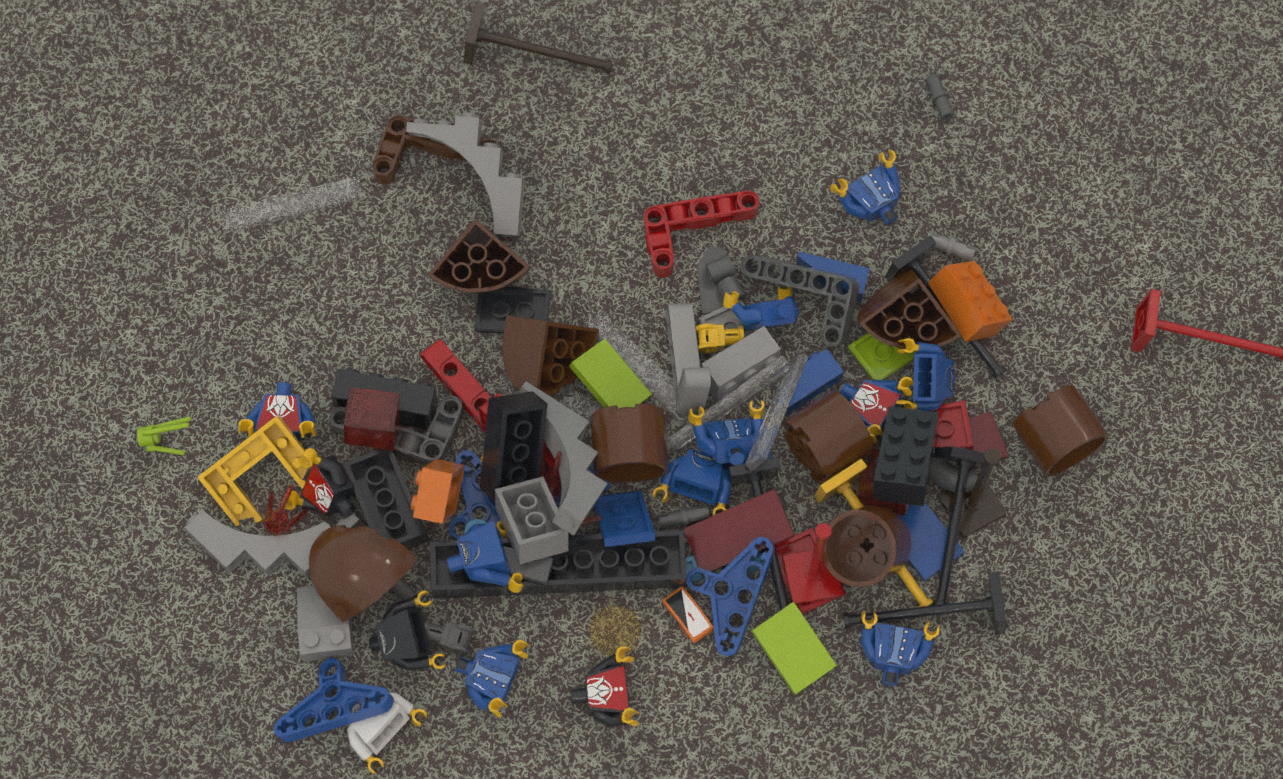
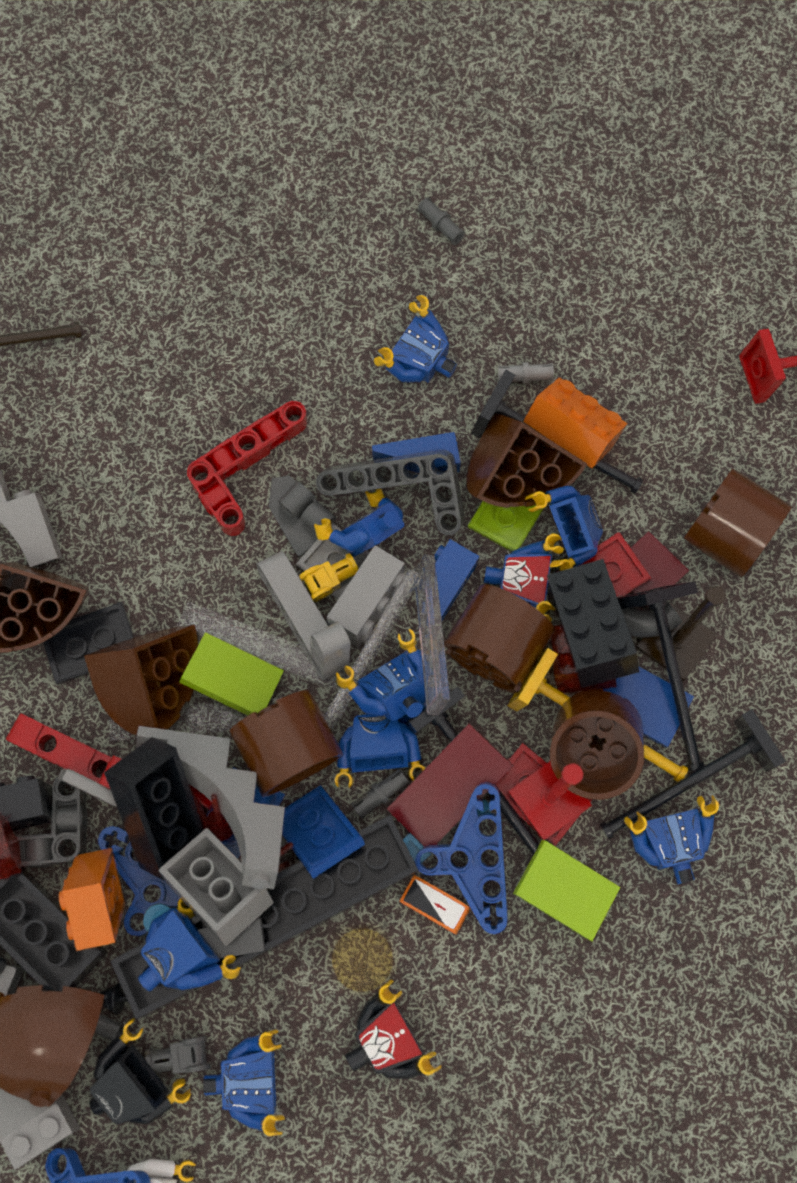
camera: 25 degrees left, 5 degrees up
(419, 574) = (114, 998): none -> black piece
(469, 410) = (87, 786): none -> light grey tile

